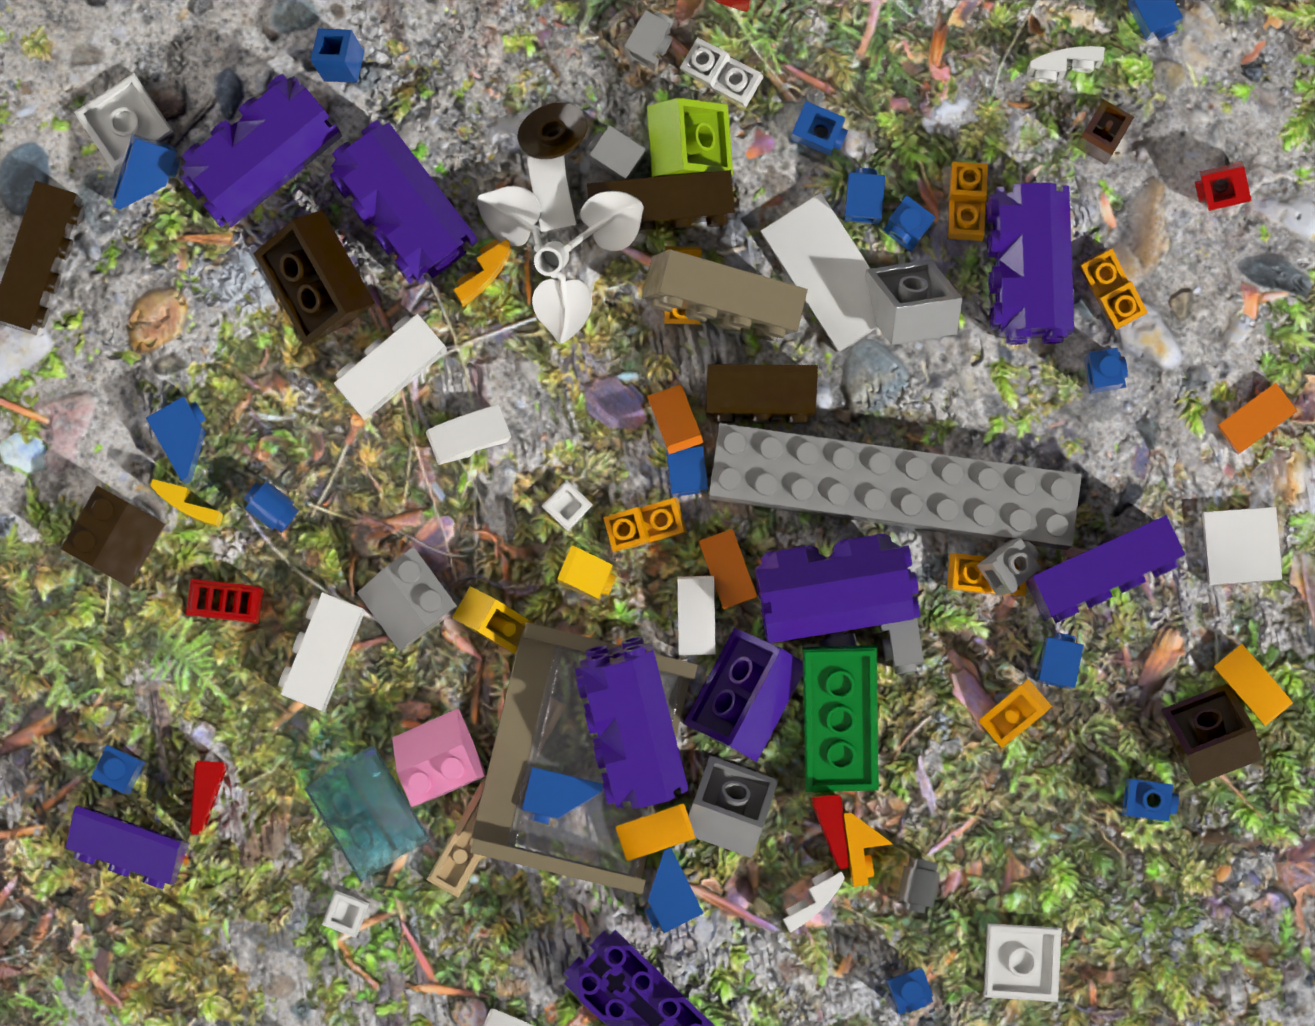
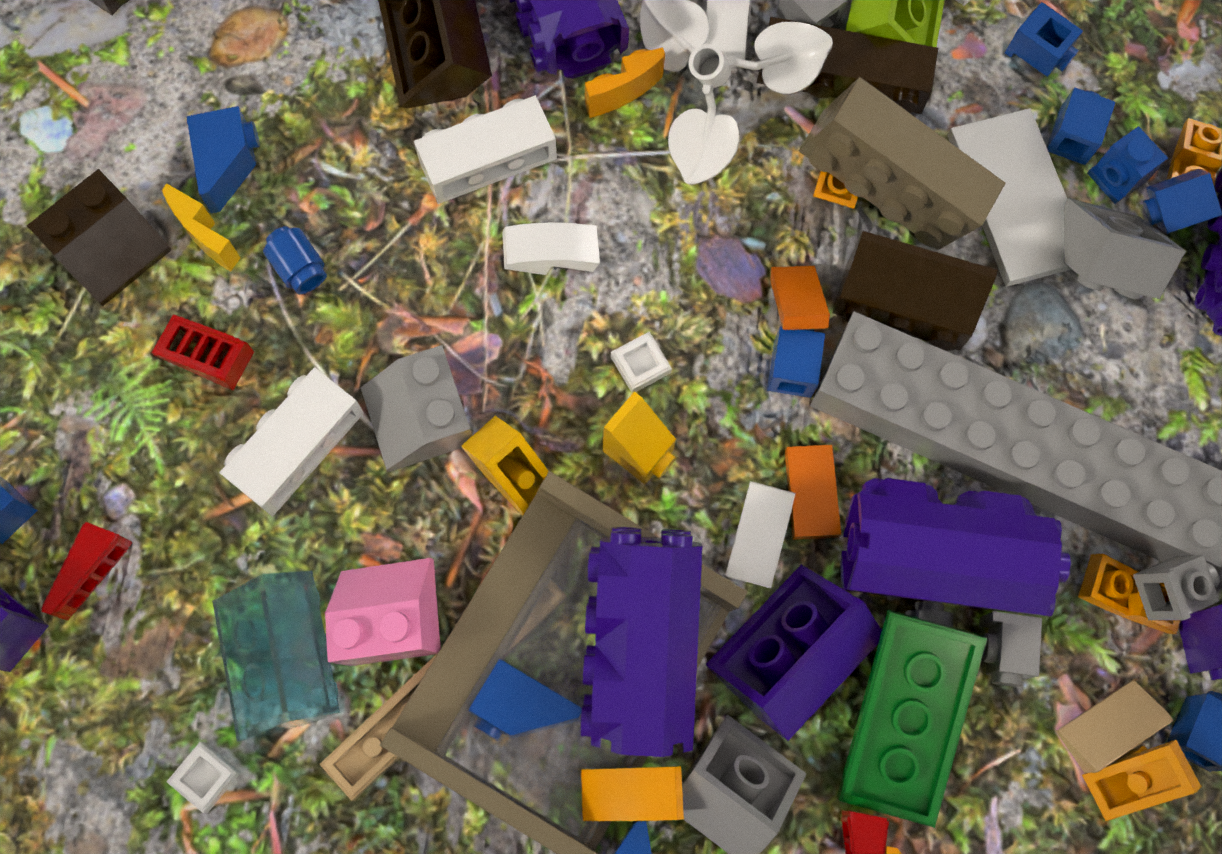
camera: 15 degrees right, 10 degrees down
(645, 524) = (726, 411): light orange slope -> none
(957, 245) = (1182, 201): none -> blue brick
(991, 678) = (1113, 727): none -> tan slope

